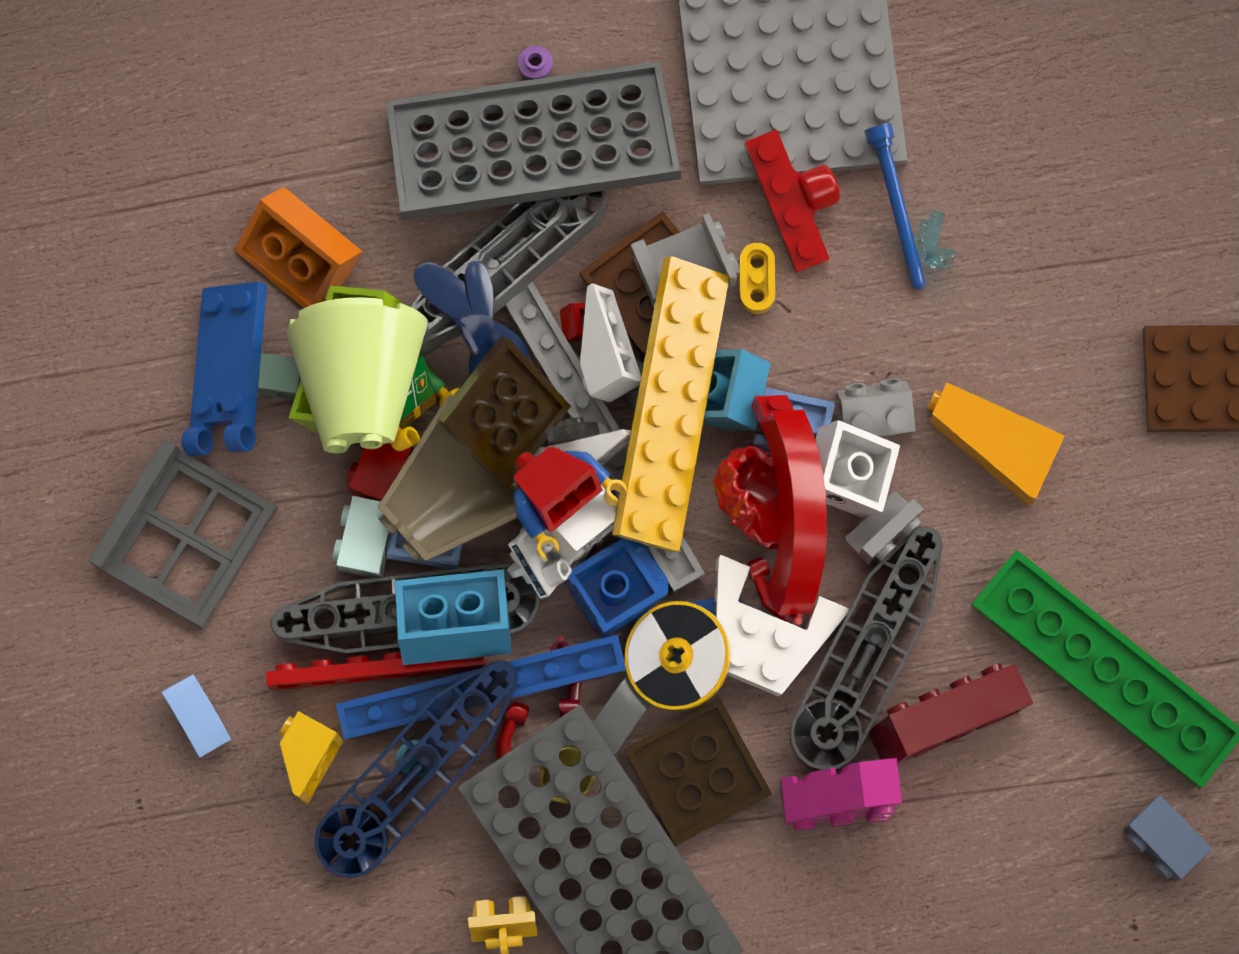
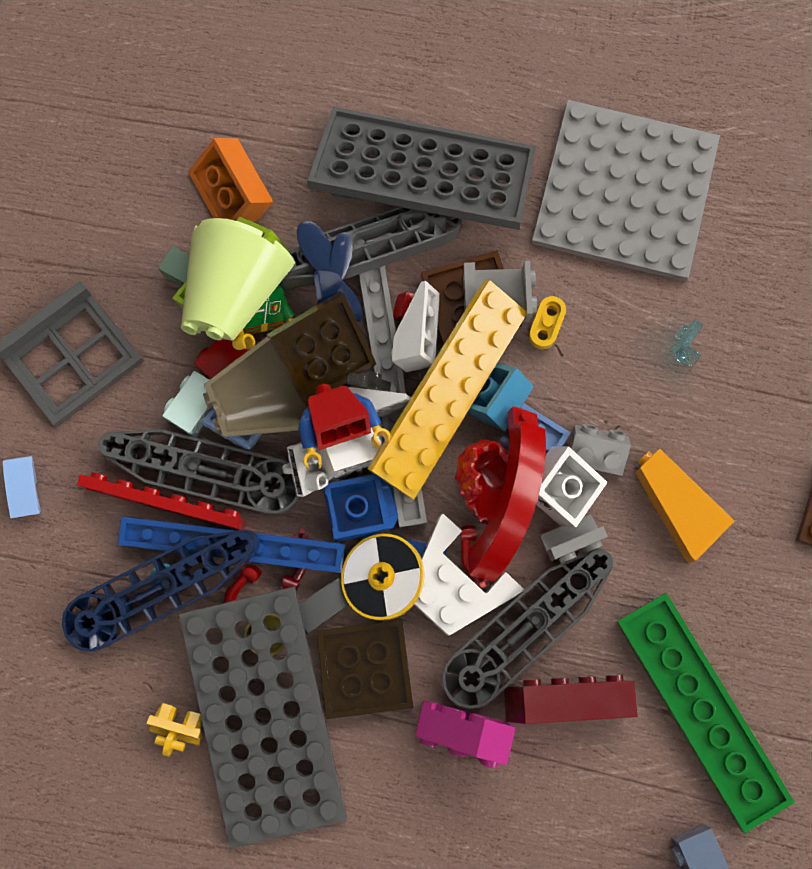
camera: 20 degrees right, 0 degrees up
(227, 367) = (145, 249): blue hinge -> none
(307, 753) = (82, 546): yellow slope -> none
(452, 617) = (226, 485): dark azure slope -> none
(535, 72) = (450, 123): medium lavender plate -> none
(793, 198) = (595, 274): red plate -> none
(881, 139) = (675, 253): blue piece -> none

